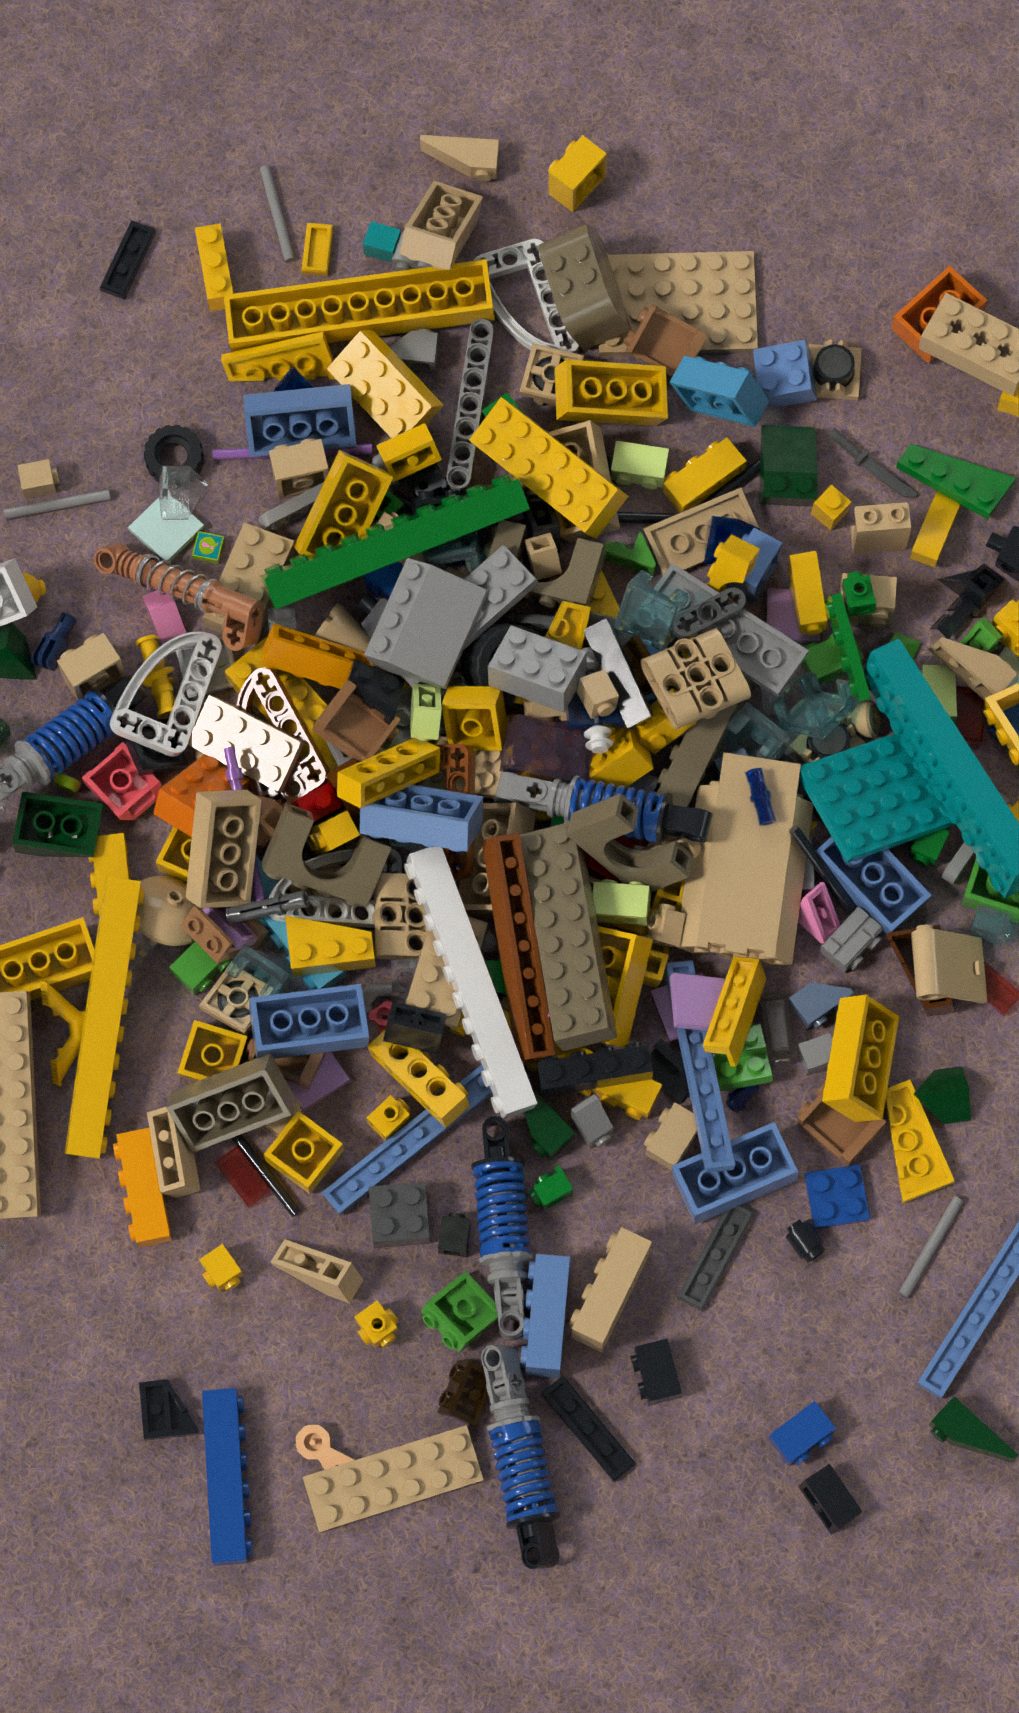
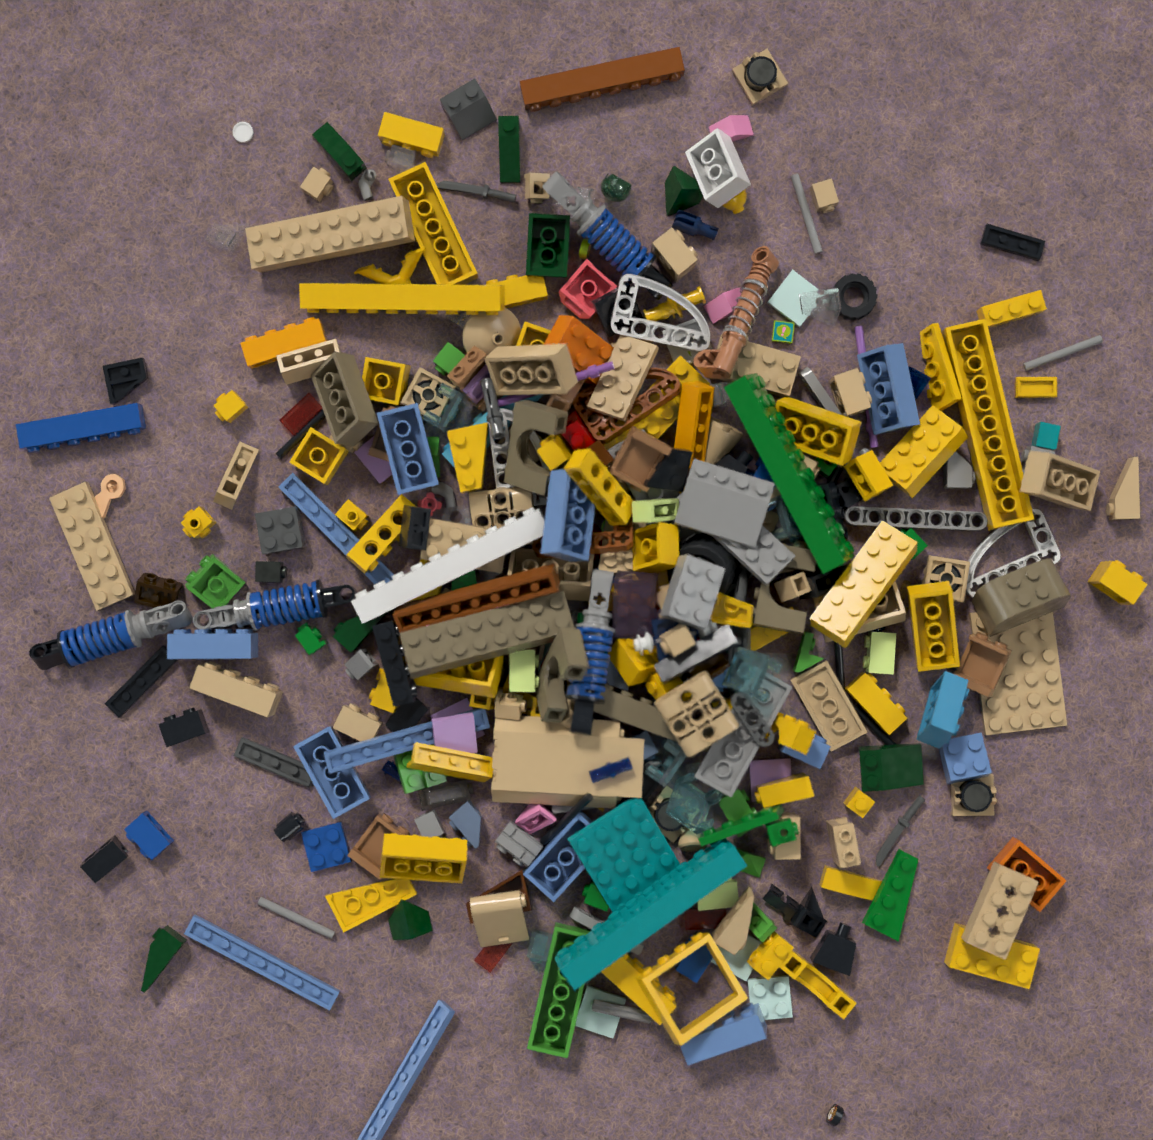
camera: 85 degrees right, 15 degrees up
(719, 531) = (824, 723): clear blue slope -> none

